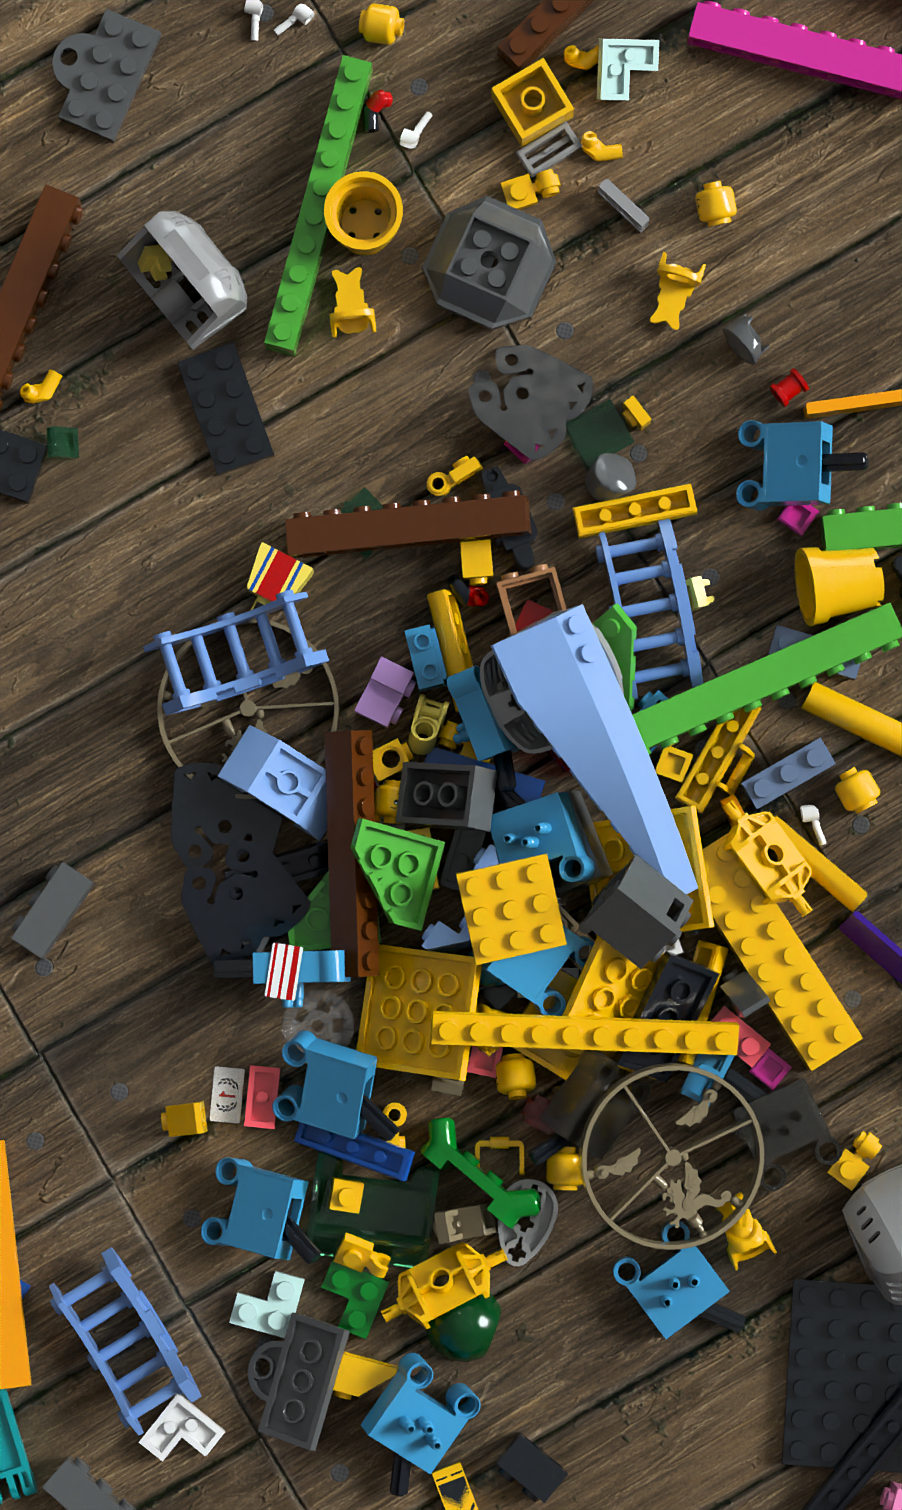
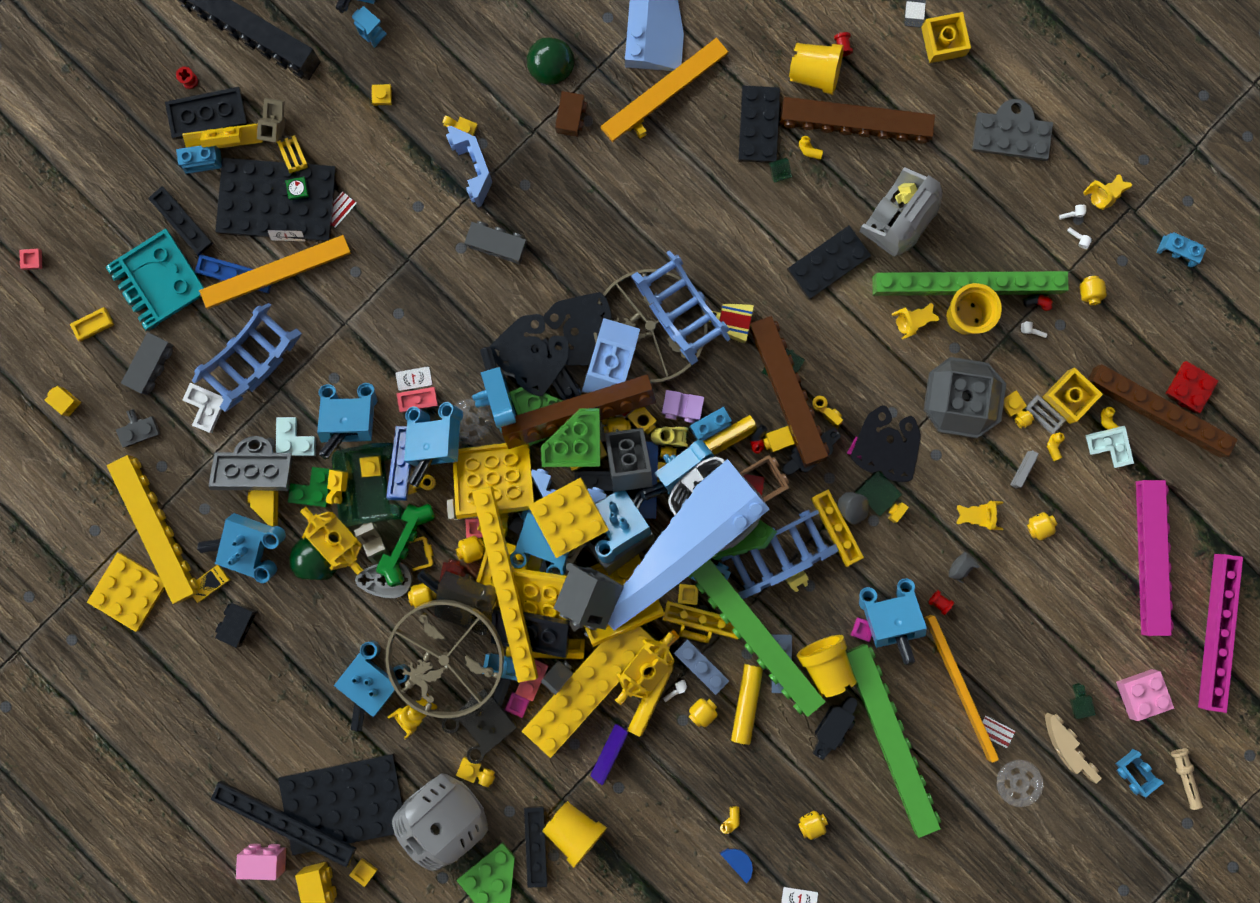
camera: 70 degrees right, 0 degrees up
(184, 1119) = (391, 357): yellow slope -> none
(283, 971) = (492, 389): sticker -> none

